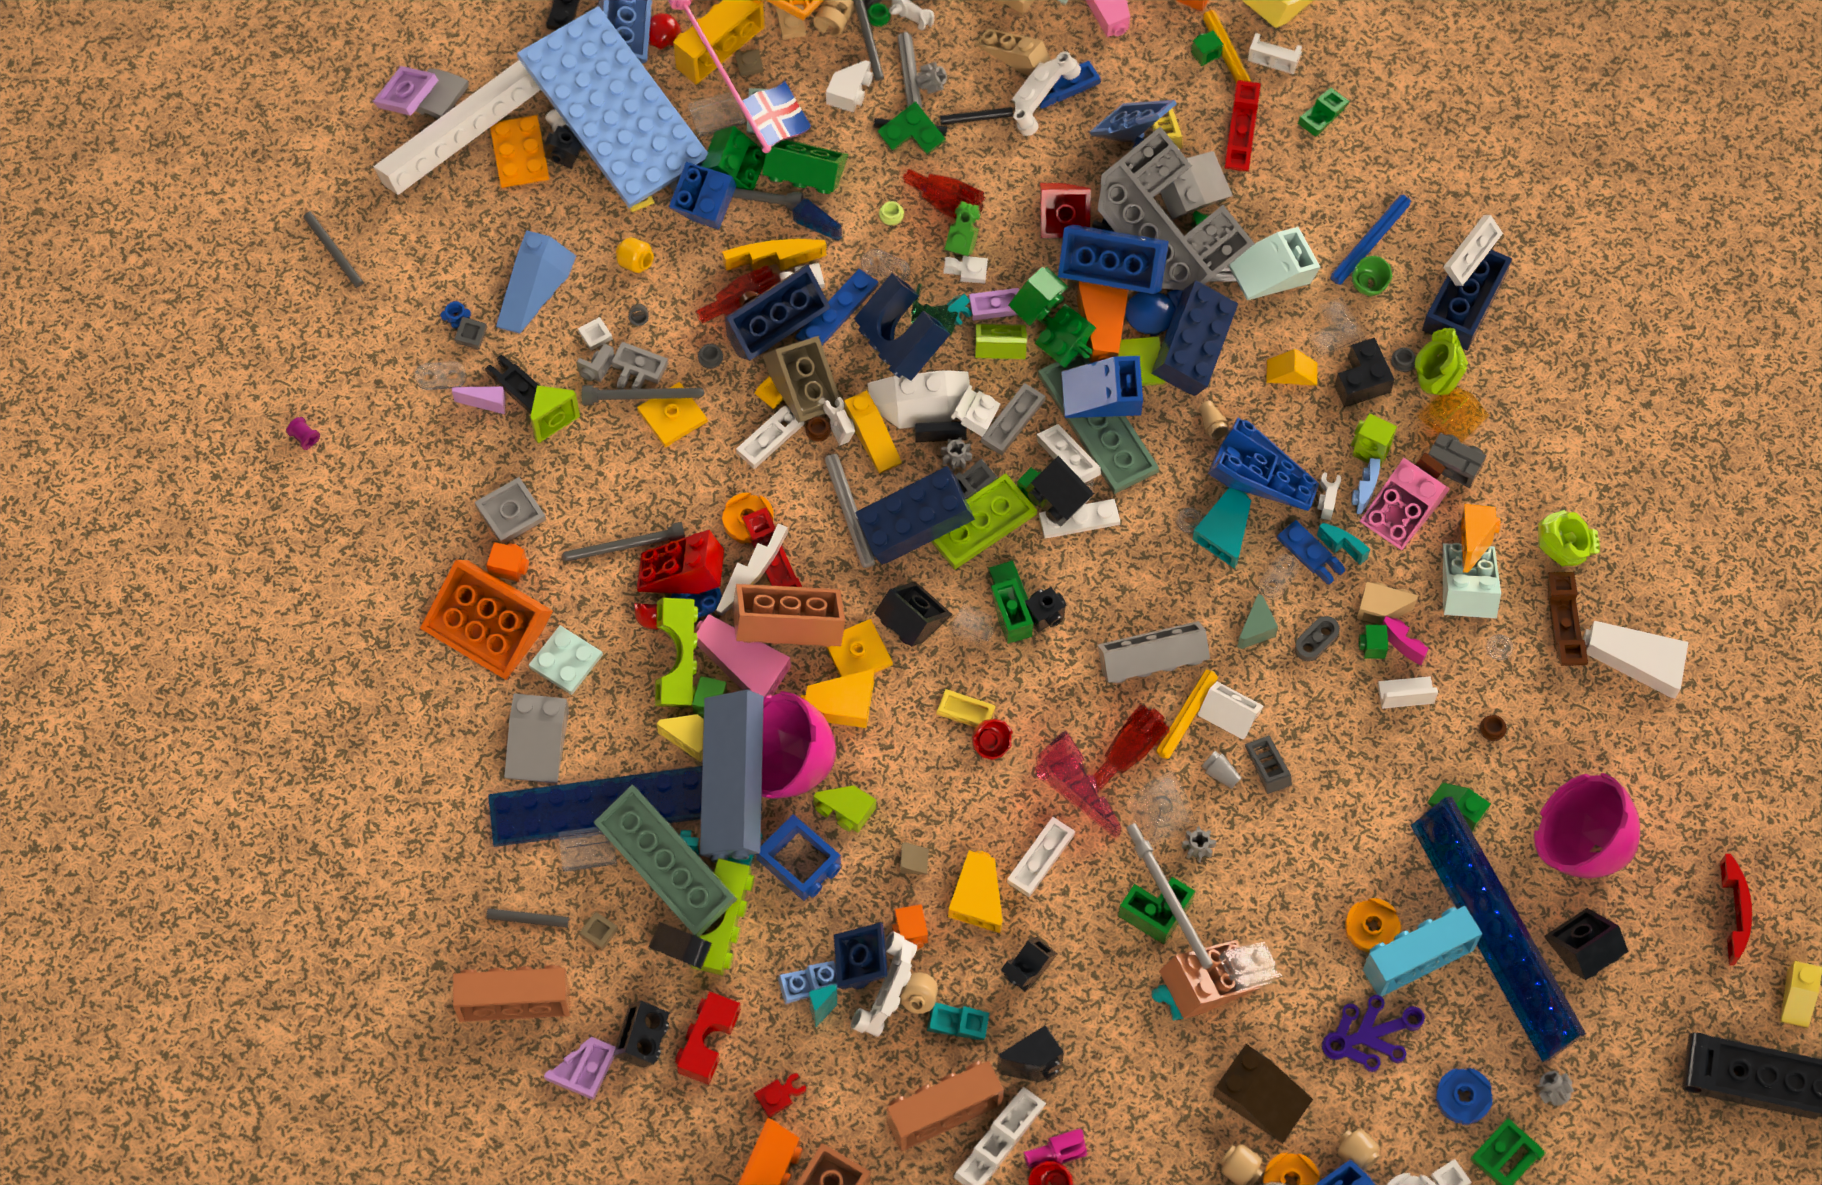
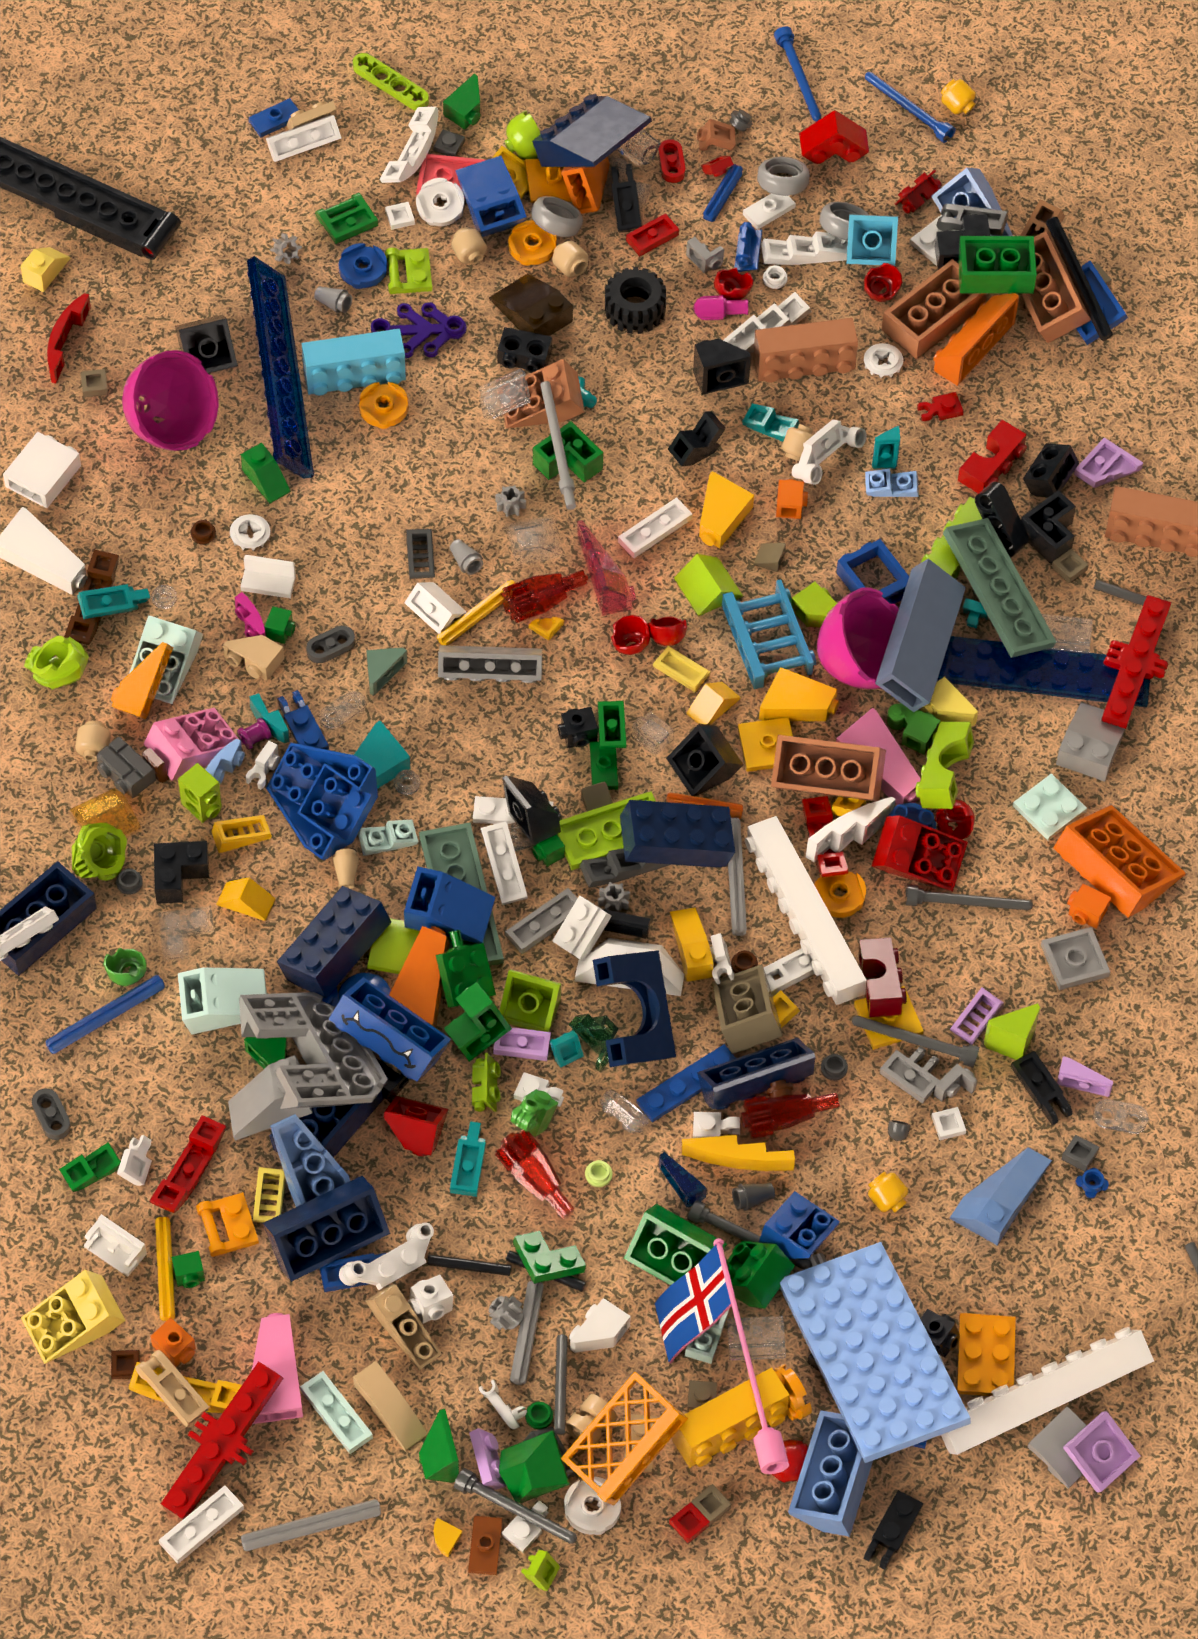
camera: 165 degrees left, 5 degrees down
(507, 828) = (1136, 661): none -> red hinge
(584, 450) = (989, 999): none -> lavender slope
(633, 959) = (1048, 526): none -> black brick
(676, 66) = (793, 1385): none -> light orange plate
(692, 456) = (879, 960): none -> arch
(752, 226) = (750, 1195): none -> dark grey cone
(772, 480) = (806, 911): none -> white brick
(852, 1125) = (882, 351): none -> white gear
(860, 956) = (843, 477): dark blue slope -> none
(900, 572) = (736, 810): none -> orange axle
(902, 741) = (750, 650): none -> dark azure fence
(921, 680) = (712, 703): none -> yellow slope
(965, 809) = (705, 582): none -> lime slope
(997, 70) = (431, 1299): none -> white brick
(1004, 550) = (596, 796): none -> dark tan slope
(1006, 193) = (468, 1162): none -> teal hinge
(1011, 253) = (485, 1073): none -> lime hinge
(1022, 714) = (635, 630): none -> red hair
(1104, 94) = (326, 1228): none -> dark blue brick
(1113, 719) = (546, 627): none -> yellow tile
(1143, 1148) = (635, 315): none -> black tyre
(1188, 105) = (236, 1222): none -> light orange plate
(1188, 463) = (393, 836): none -> light aqua slope
(1247, 1023) = (529, 352): none -> black brick
(1286, 119) = (134, 1163): none -> white plate
(1343, 428) = (233, 842): none -> yellow slope
(1354, 523) = (254, 733): none -> magenta bush
(1380, 142) = (52, 1115): none -> dark grey plate
(1404, 1110) = (417, 270): none -> lime plate
(1449, 730) = (257, 524): none -> white gear
(1478, 1043) = (335, 299): none -> light grey cone
(1497, 475) = (92, 739): none -> tan head
(1546, 619) = (111, 600): none -> teal hinge
(1680, 866) = (94, 383): none -> dark tan plate
(1683, 747) = (42, 469): none -> white brick

